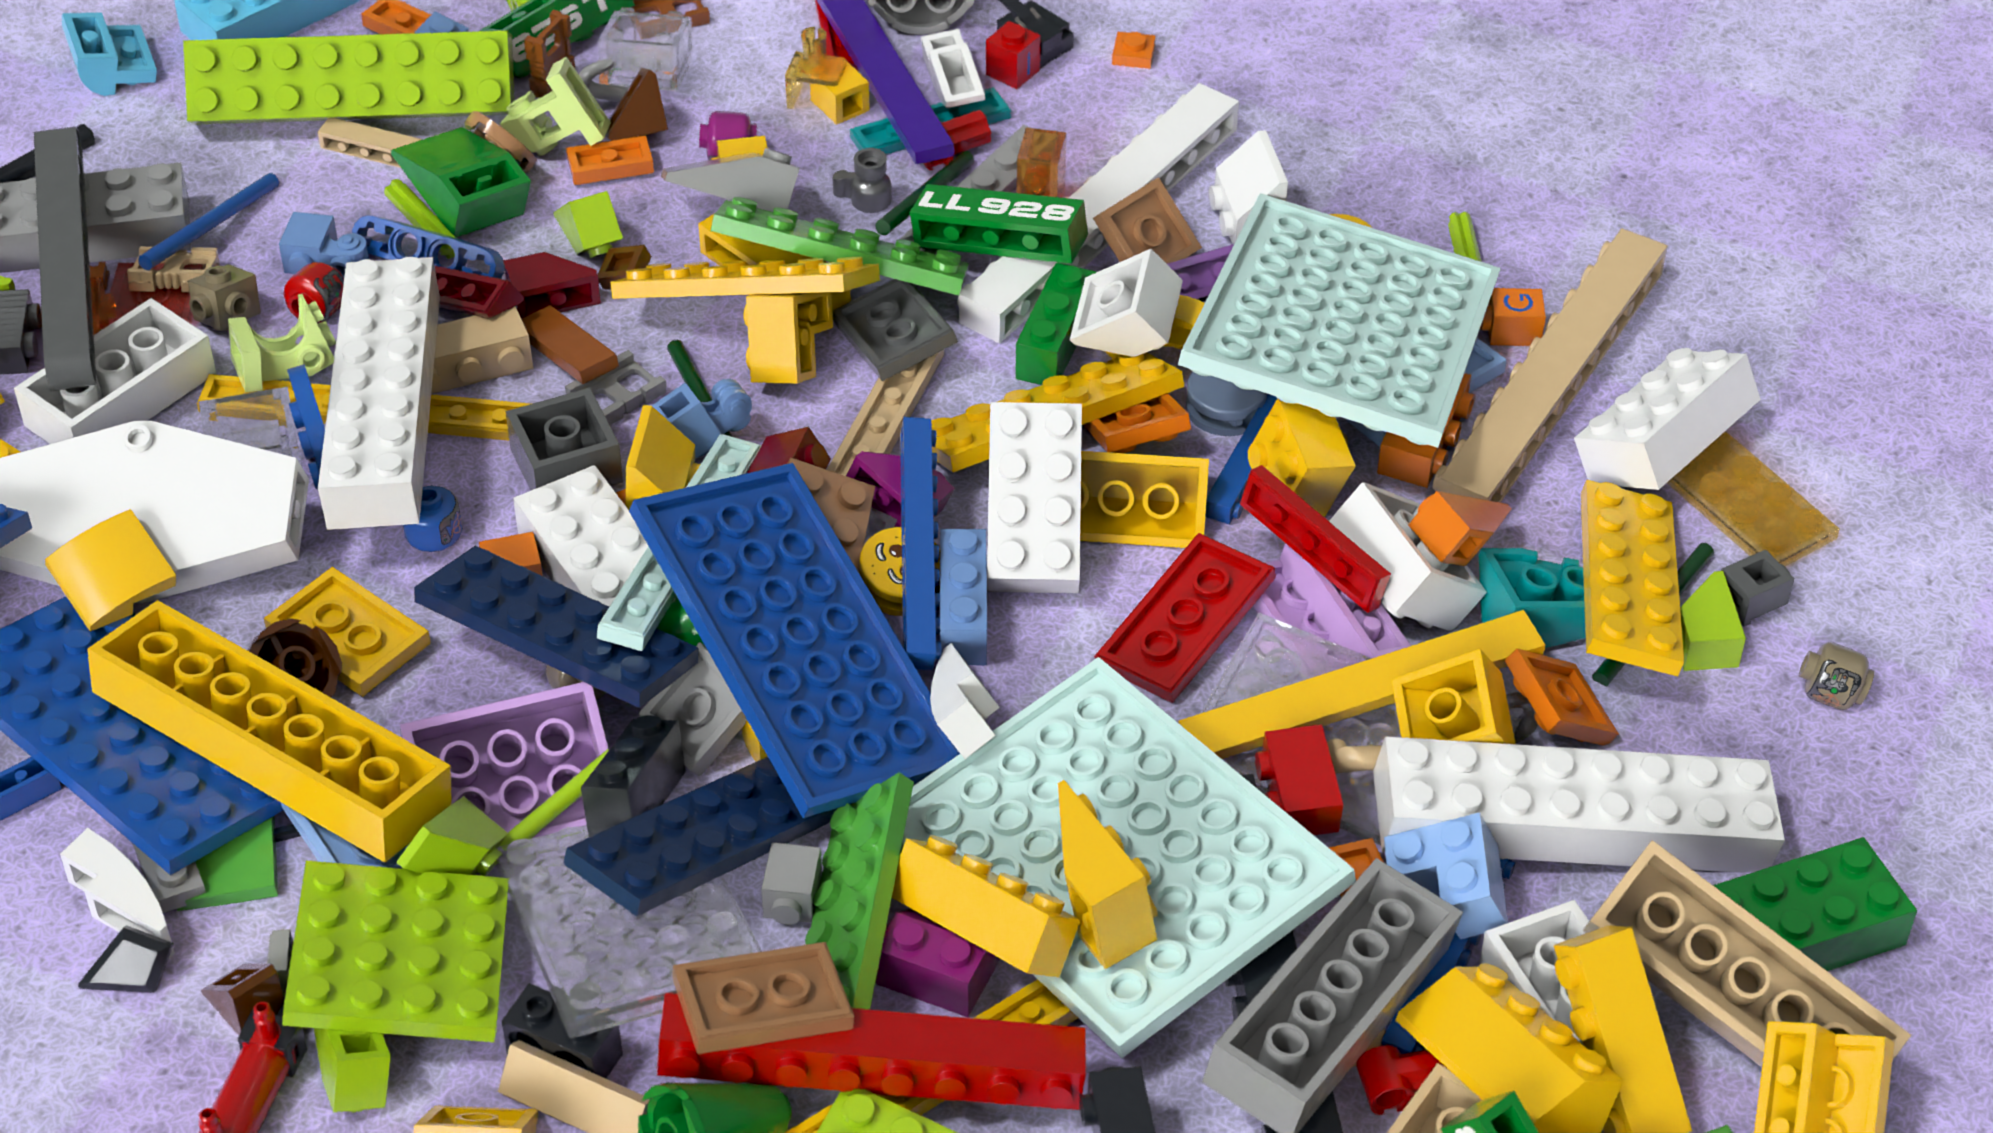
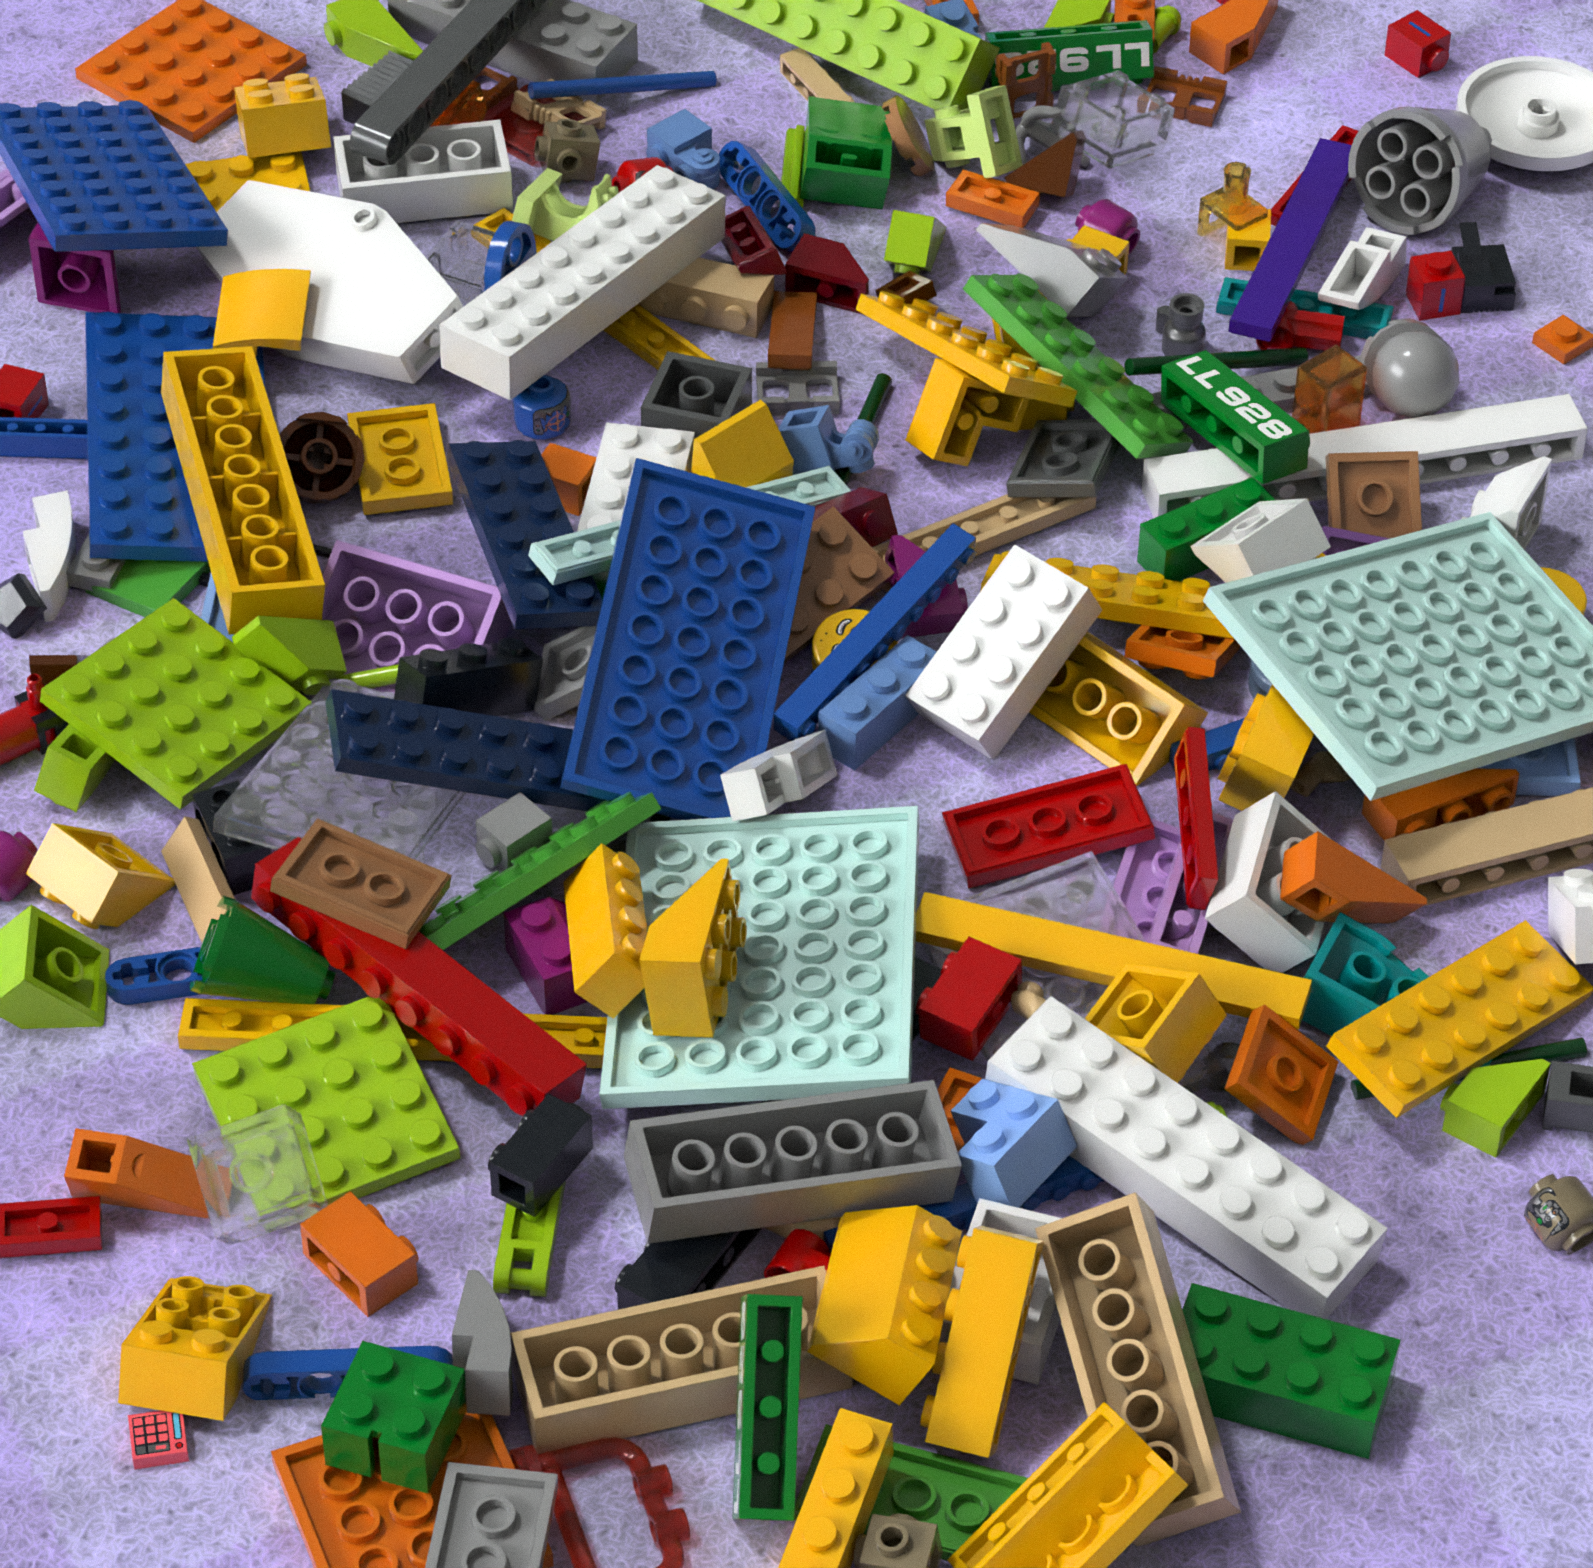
camera: 40 degrees right, 0 degrees up
(1090, 115) = (1410, 368): none -> light grey tile

